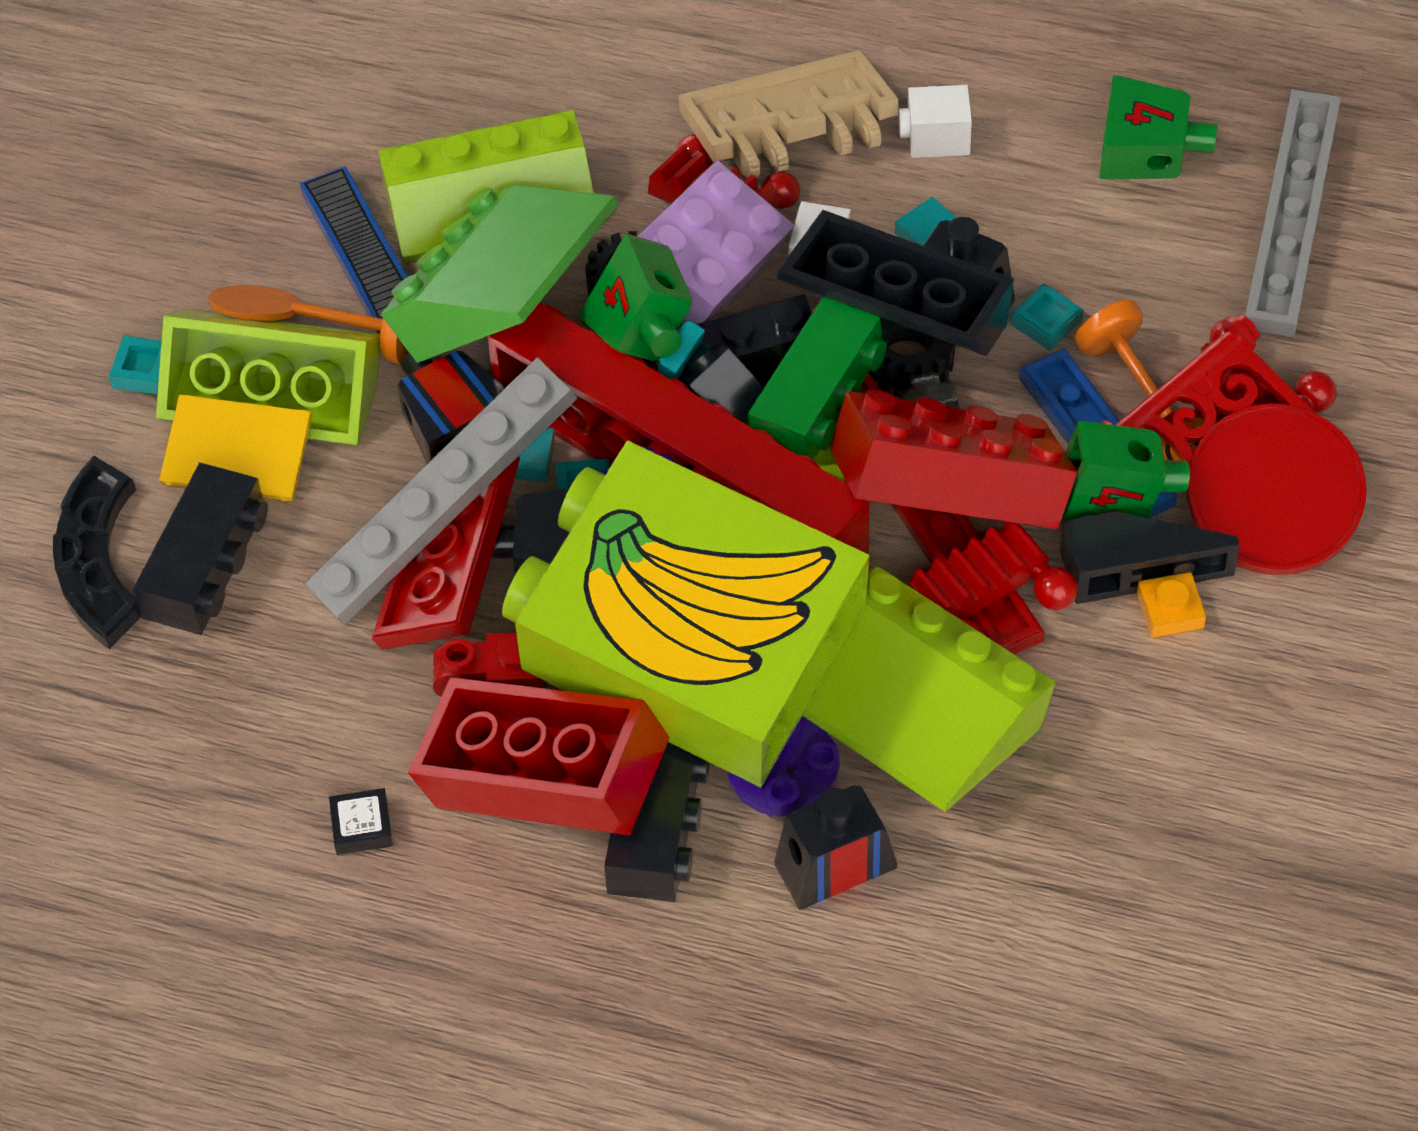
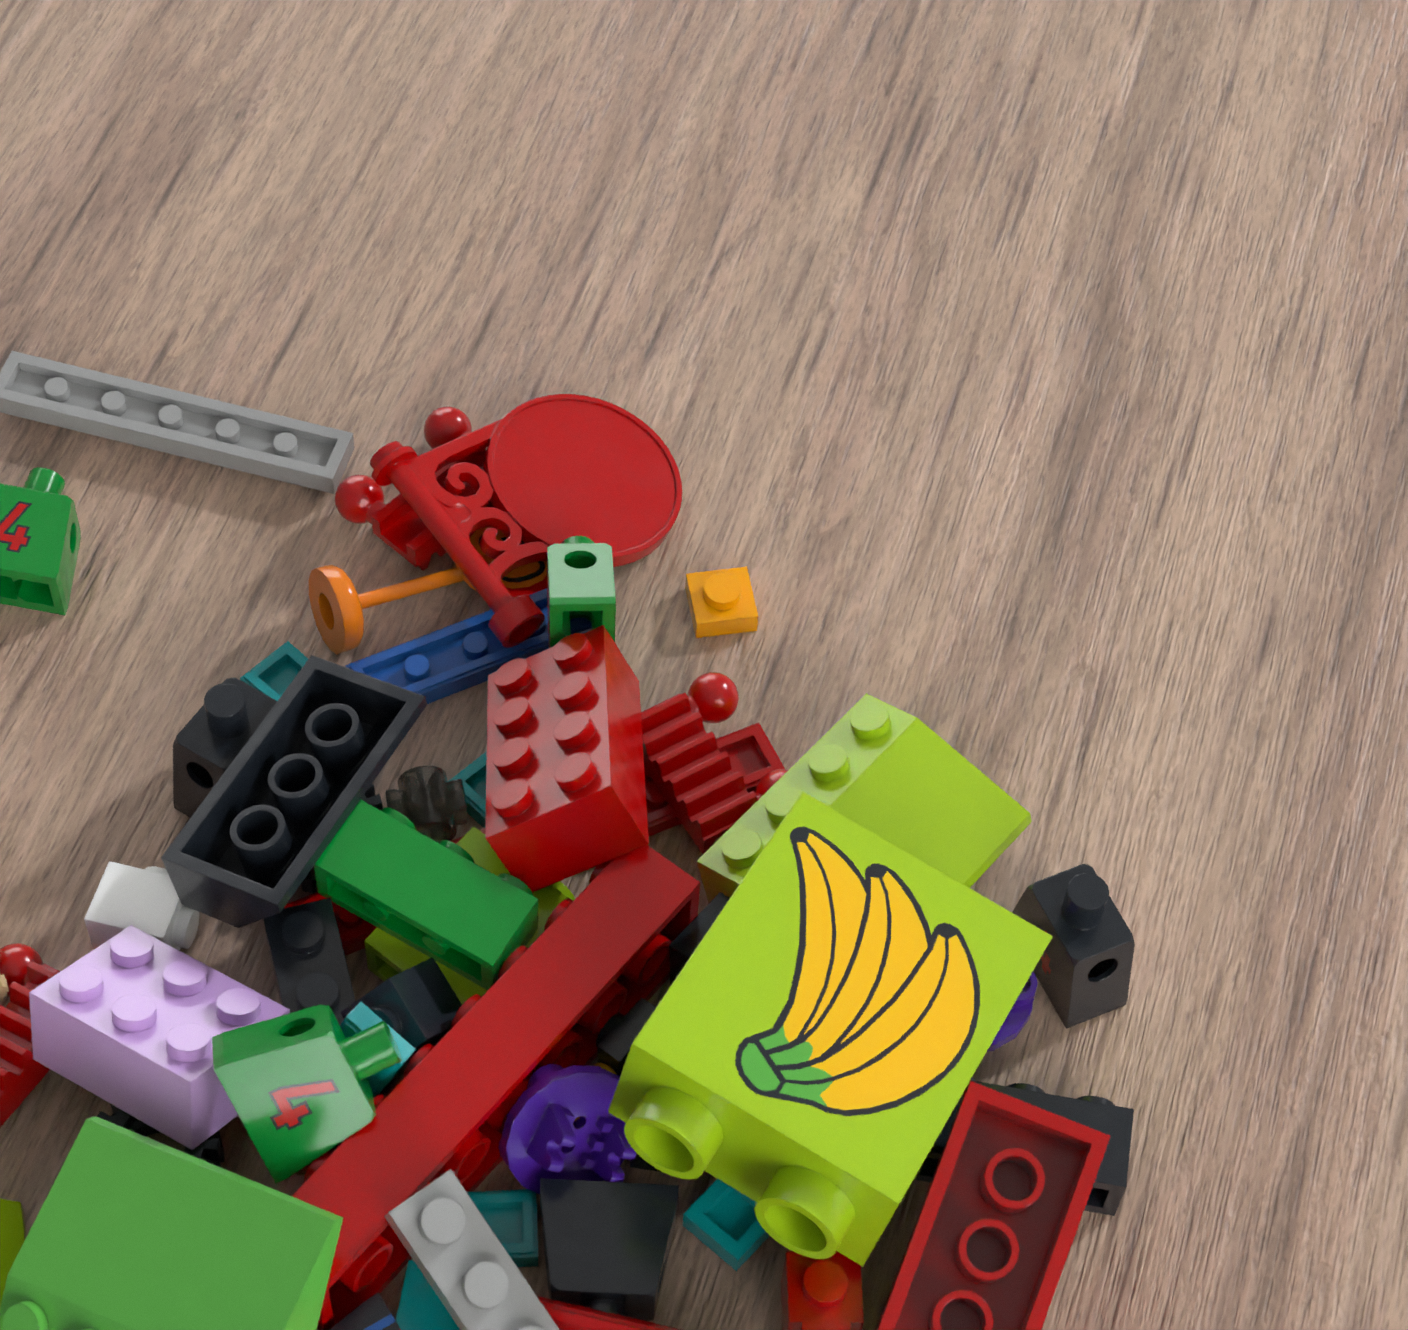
camera: 95 degrees left, 0 degrees up
(922, 221) = (123, 796): teal tile -> none
(1119, 549) = (663, 620): black slope -> none

